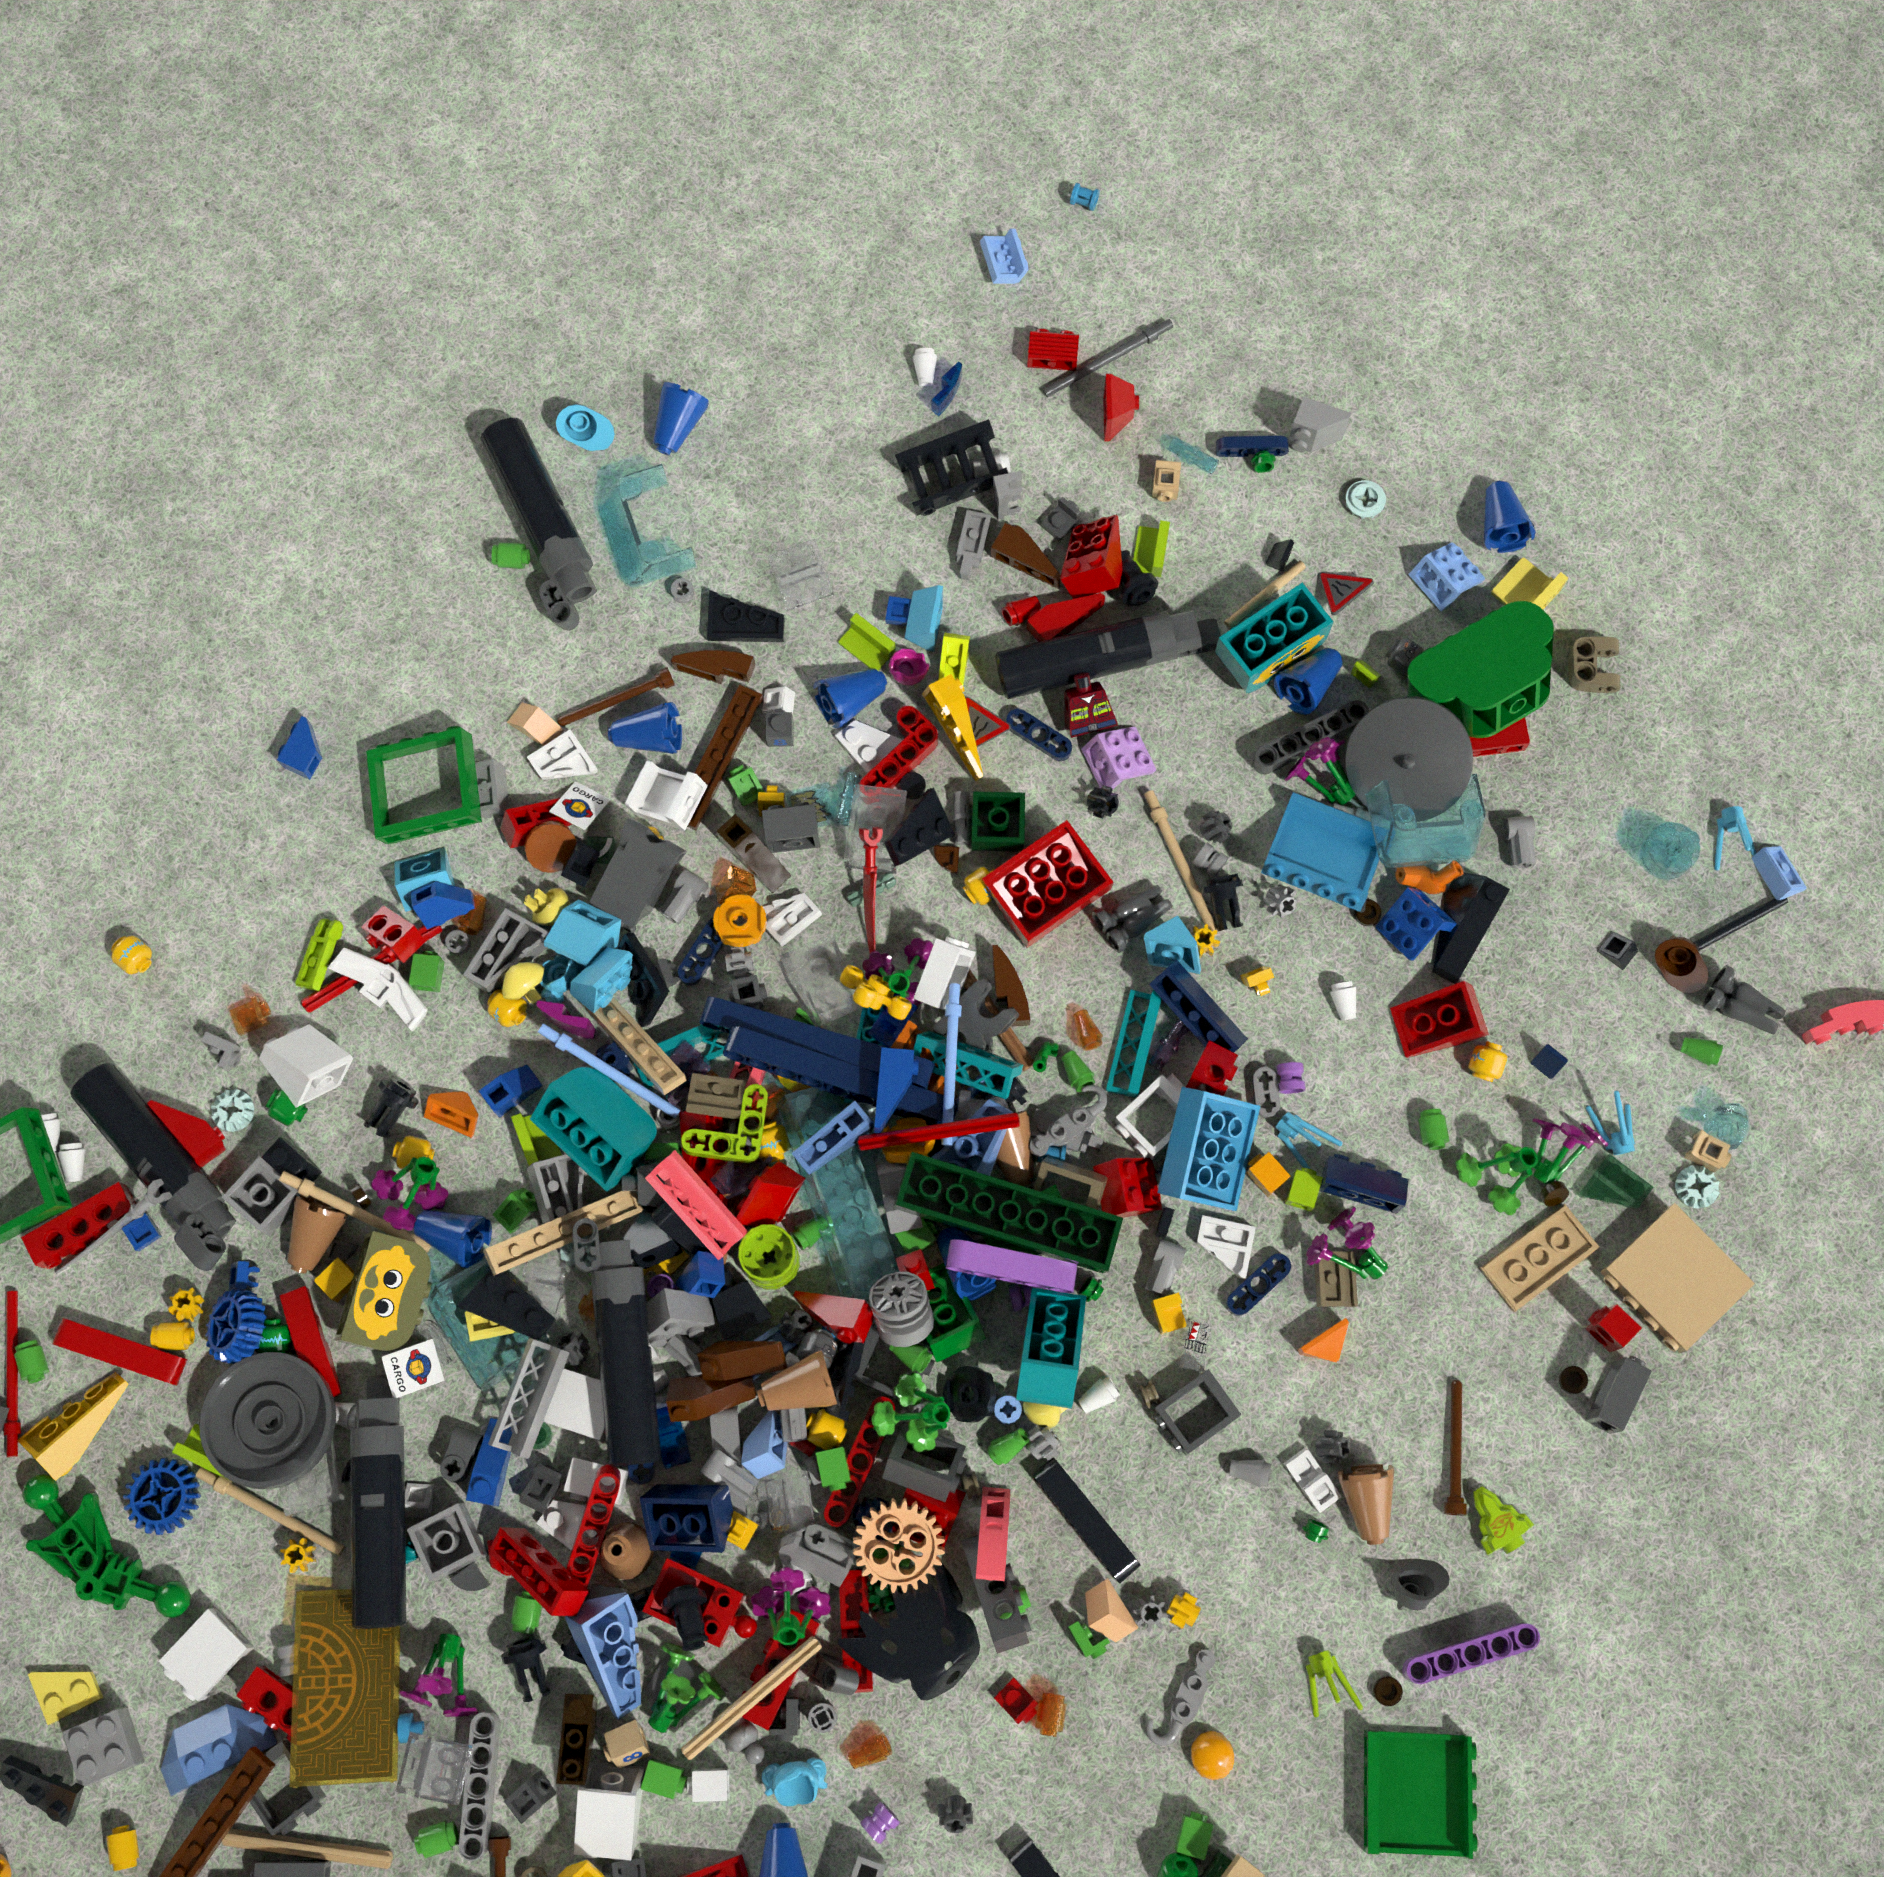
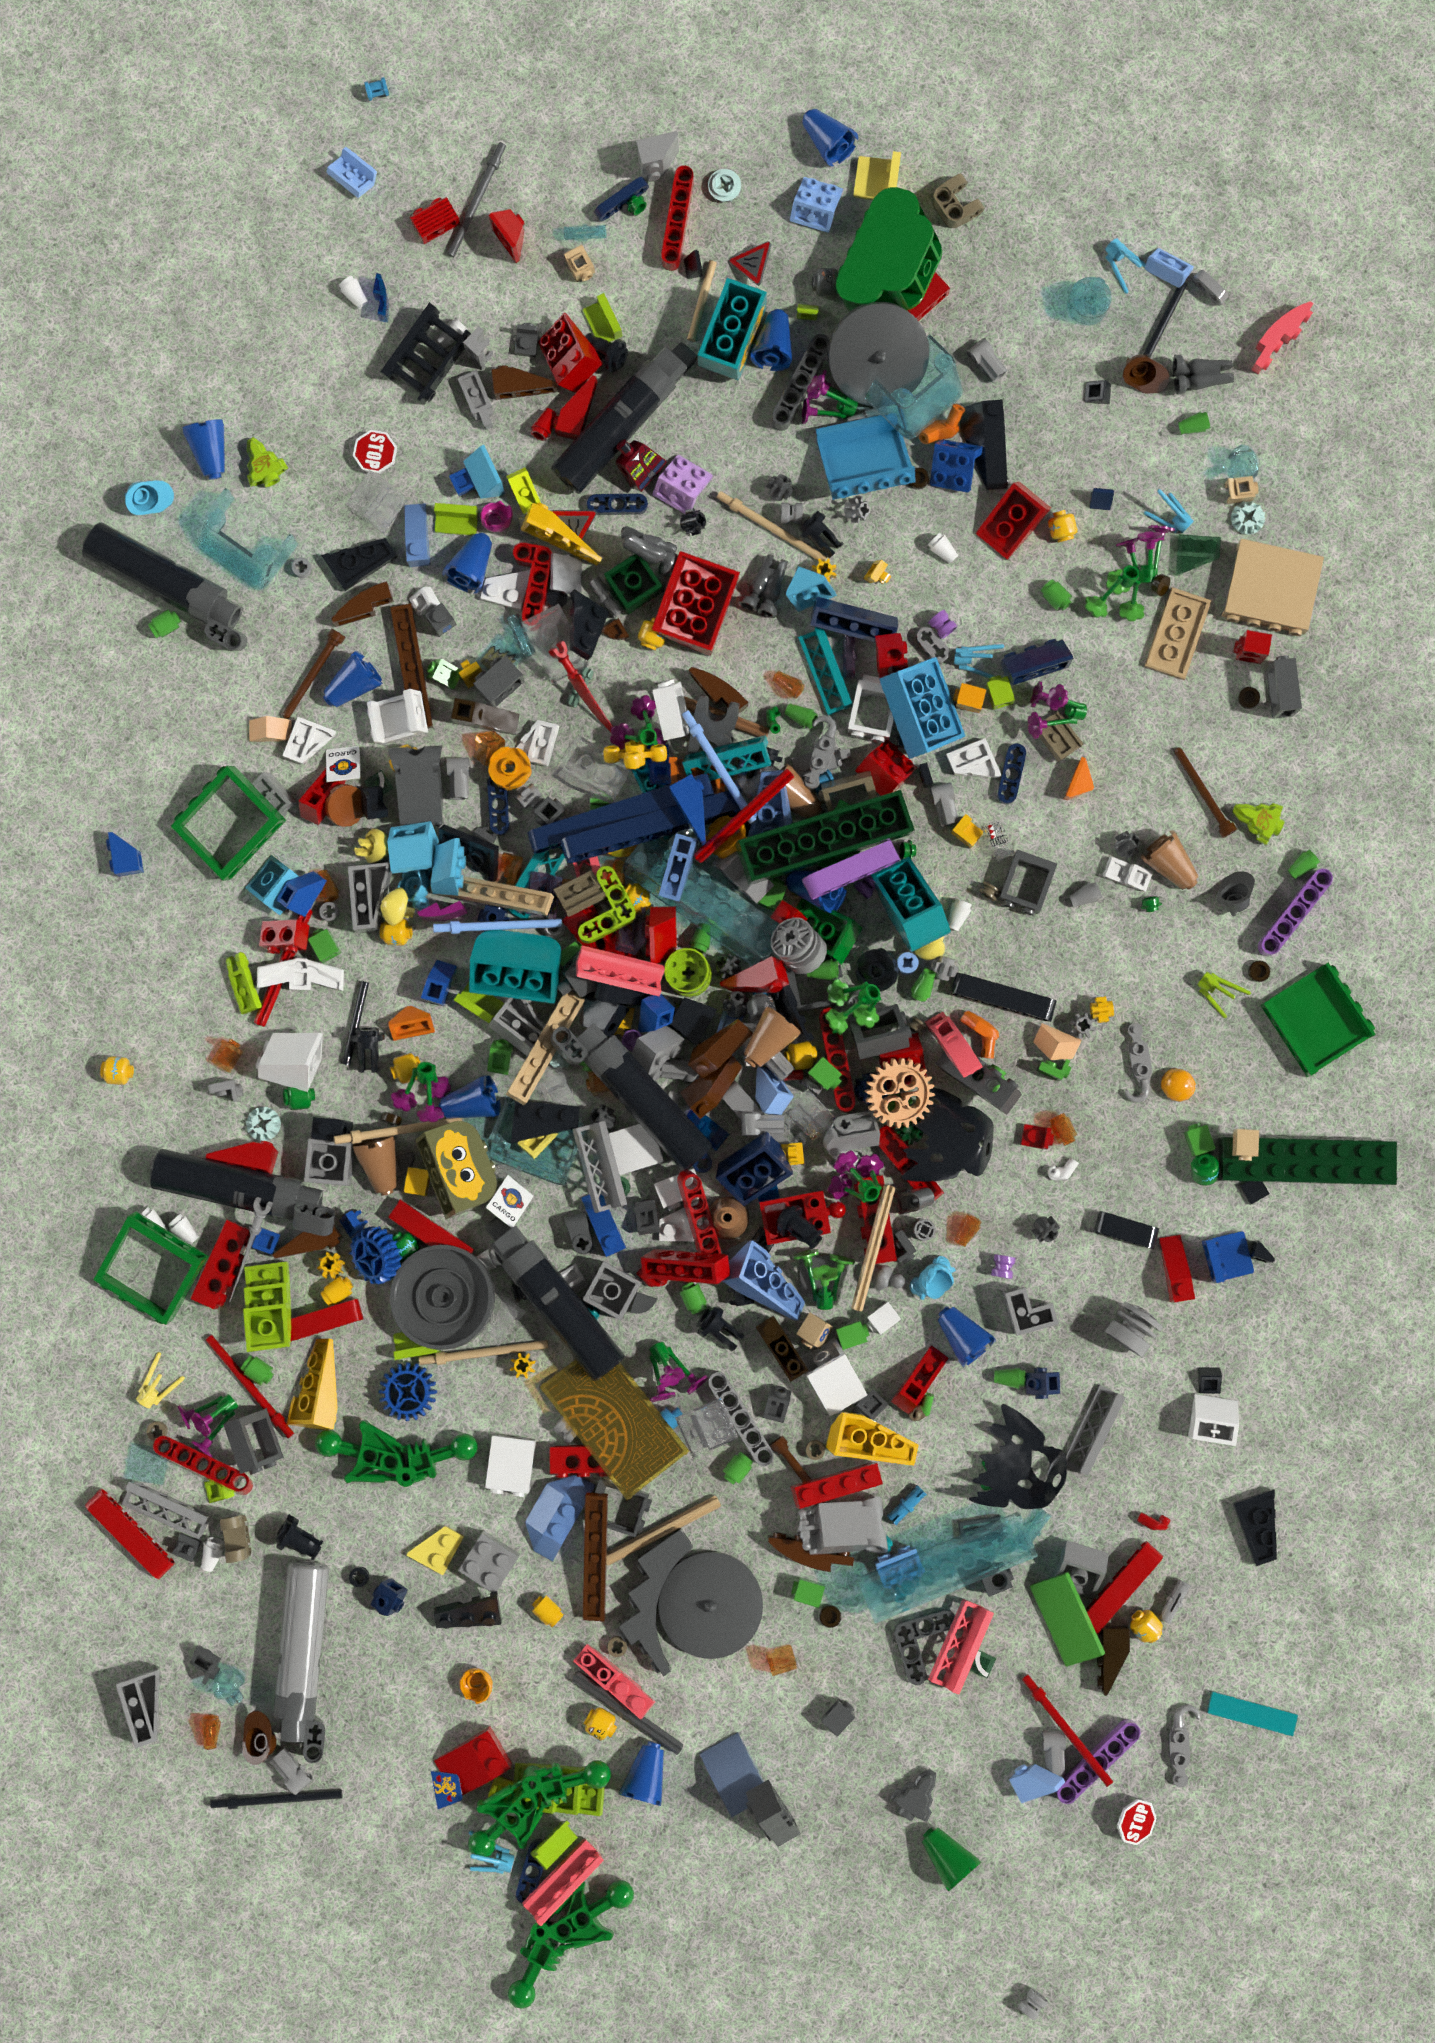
camera: 30 degrees left, 10 degrees up
(89, 1302) = (267, 1307): none -> lime slope
(178, 1264) = (309, 1242): none -> reddish brown slope
(401, 1071) = (355, 1021): none -> black bar
(670, 1023) = (512, 867): none -> clear orange bracket
(718, 470) = (263, 465): none -> lime rock
(816, 634) = (416, 535): none -> medium blue slope
(816, 1279) = (727, 966): none -> dark grey gear
(835, 527) = (375, 451): none -> piece
(937, 767) = (565, 573): none -> flat silver piece
(1019, 1763) = (1062, 1173): none -> white arm
(1038, 797) = (650, 549): none -> dark grey piece
(1041, 1543) = (984, 1029): none -> orange arm
(1299, 489) = (677, 208): none -> red beam
(1515, 1606) = (1305, 863): none -> bright green cone
(1811, 921) = (1210, 287): none -> light grey beam

